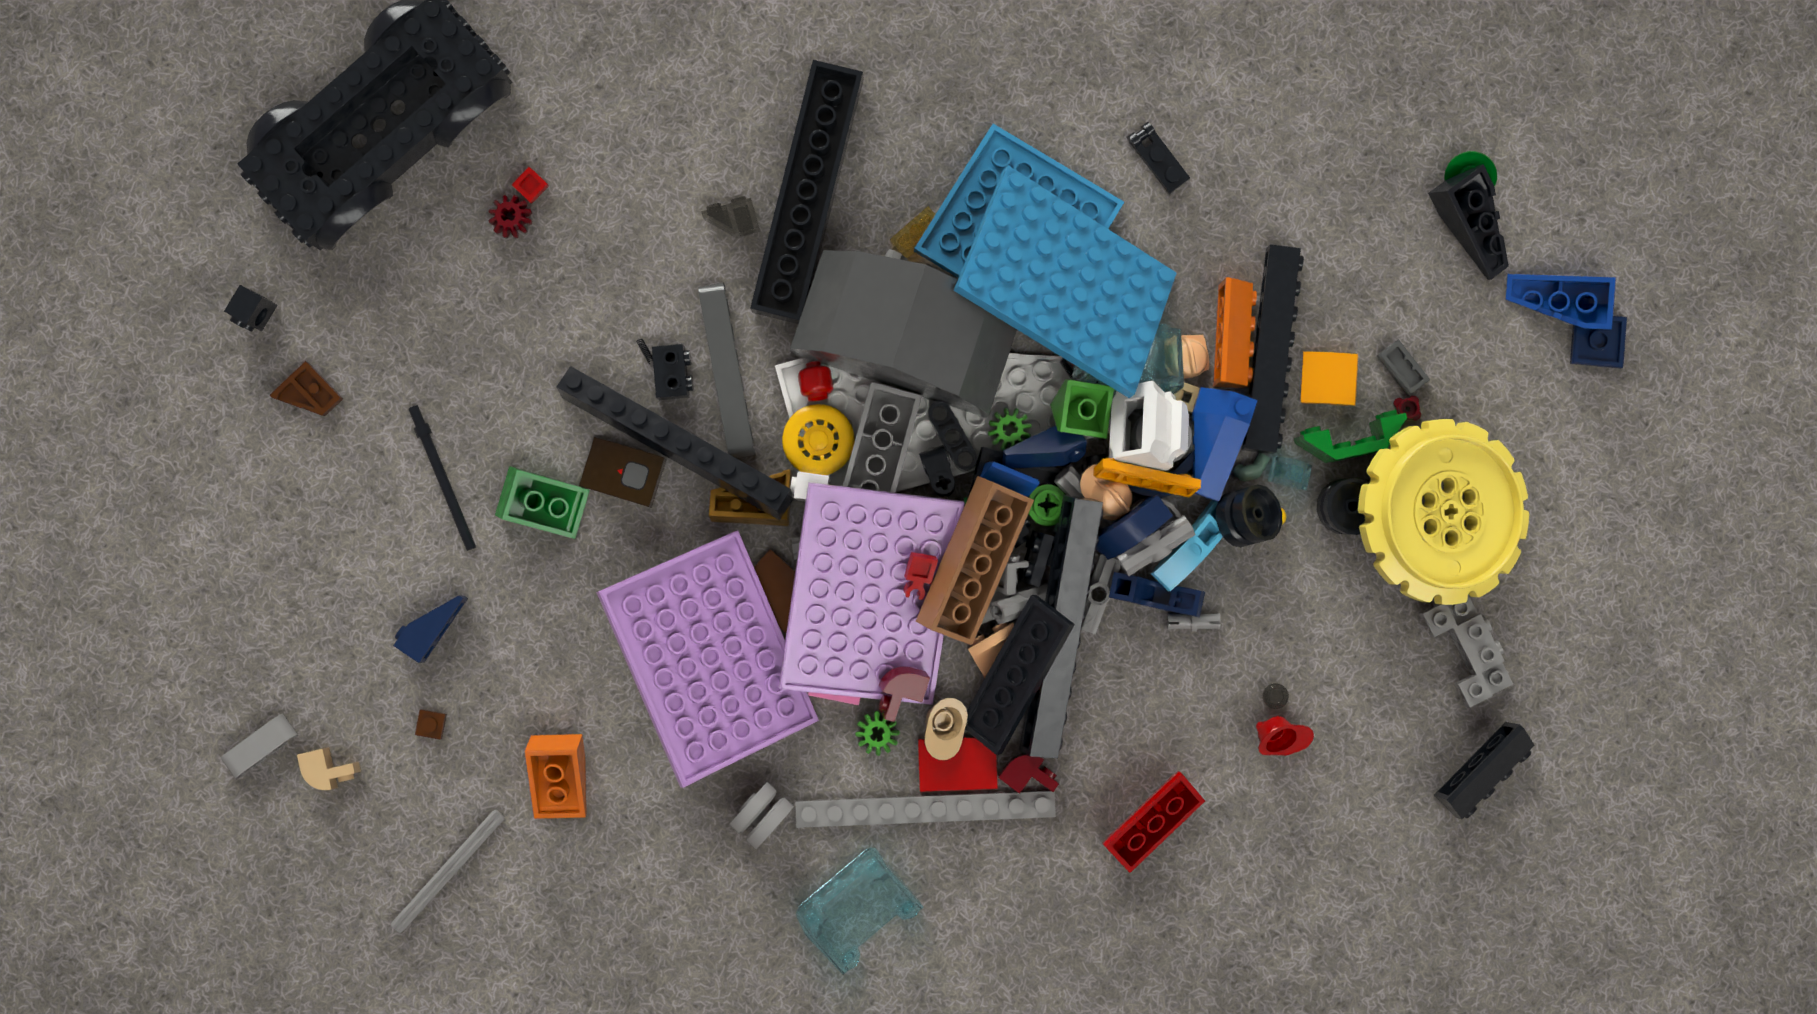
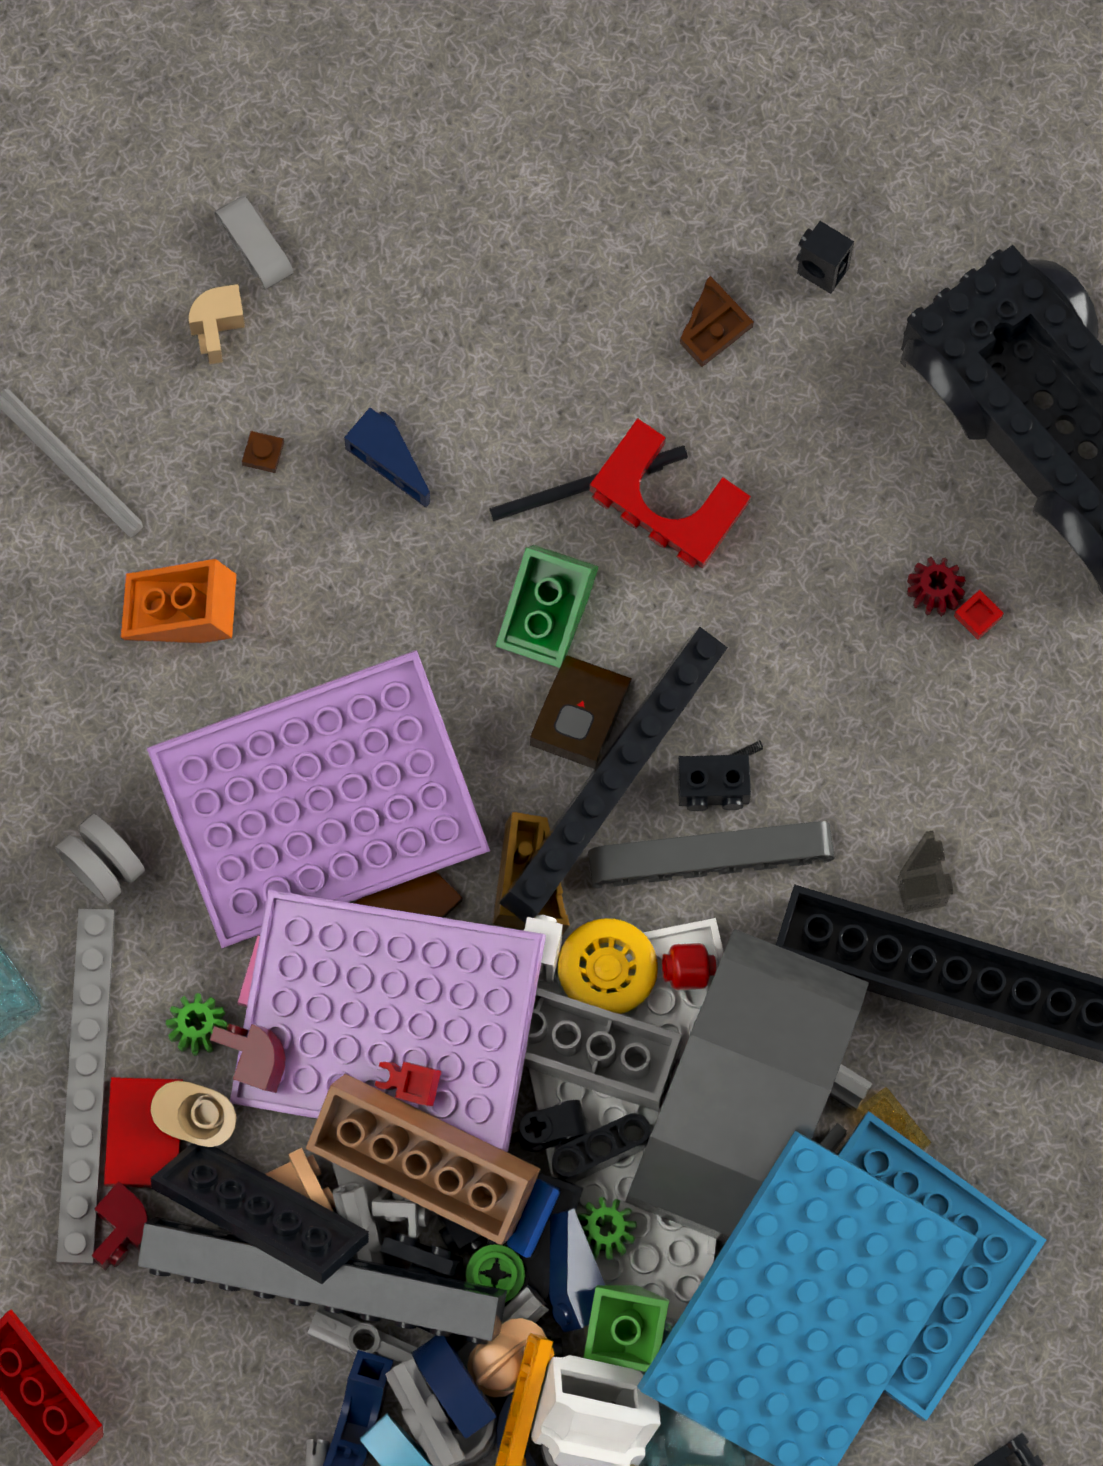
camera: 90 degrees right, 15 degrees down
(447, 452) = (692, 536): none -> red arch

